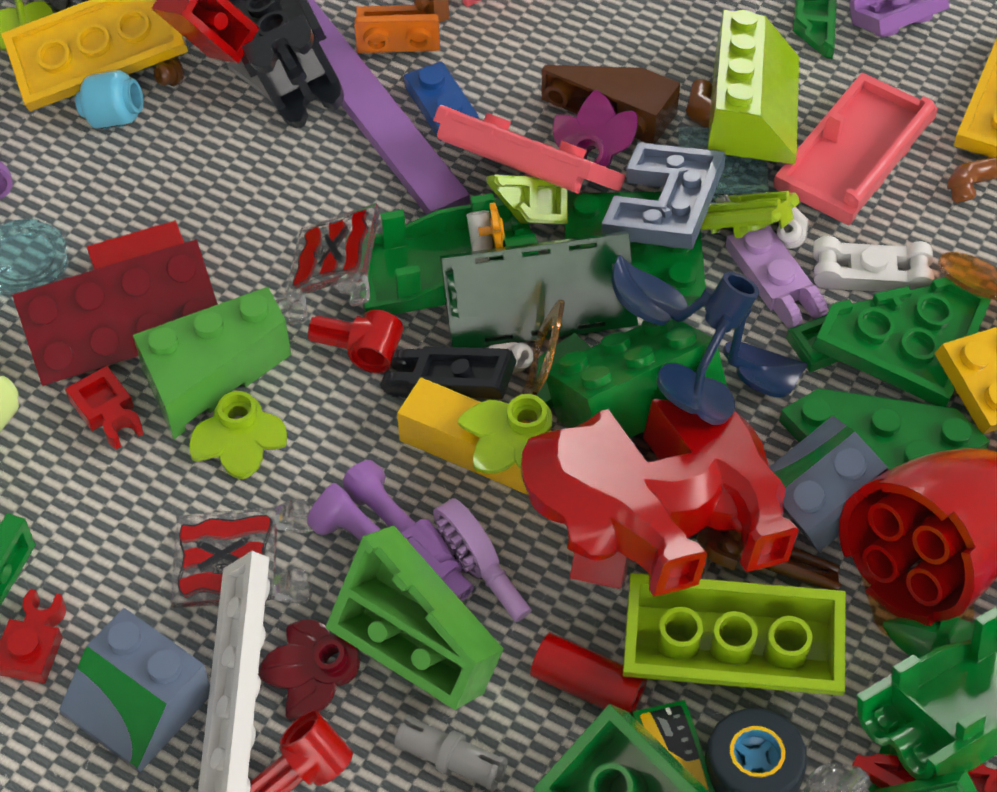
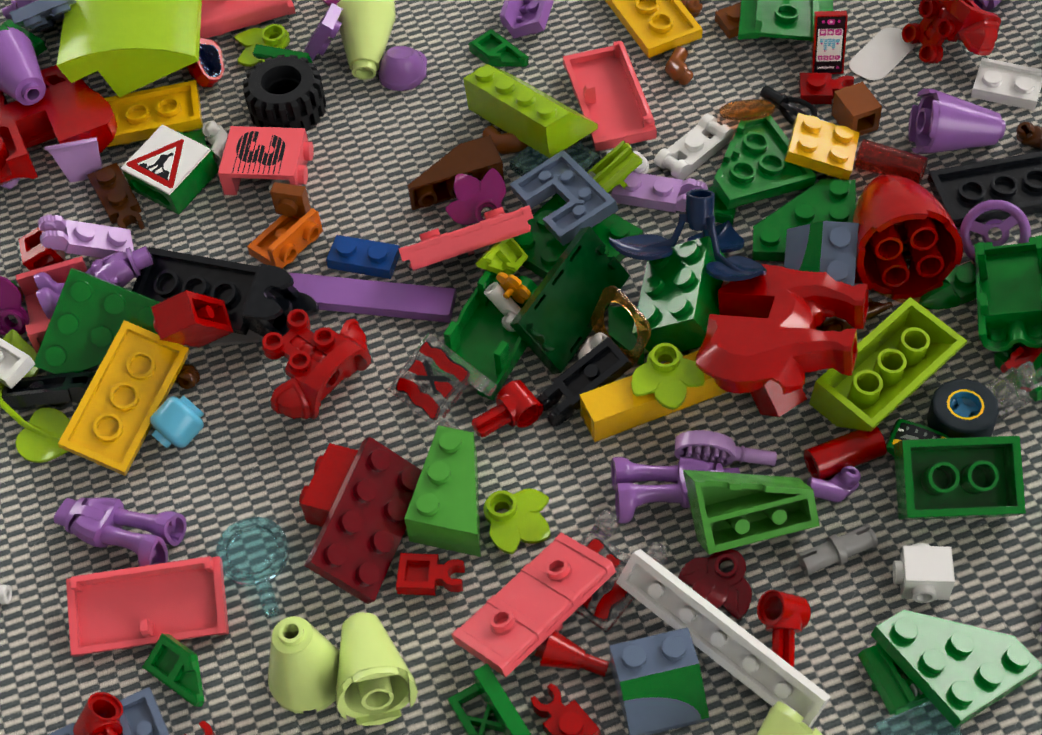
camera: 45 degrees left, 0 degrees up
(104, 577) = (563, 653): none -> red cone
(133, 513) = (533, 604): none -> coral container
(256, 135) = (315, 362): none -> red piece
(537, 701) = (838, 487): none -> medium lavender arm

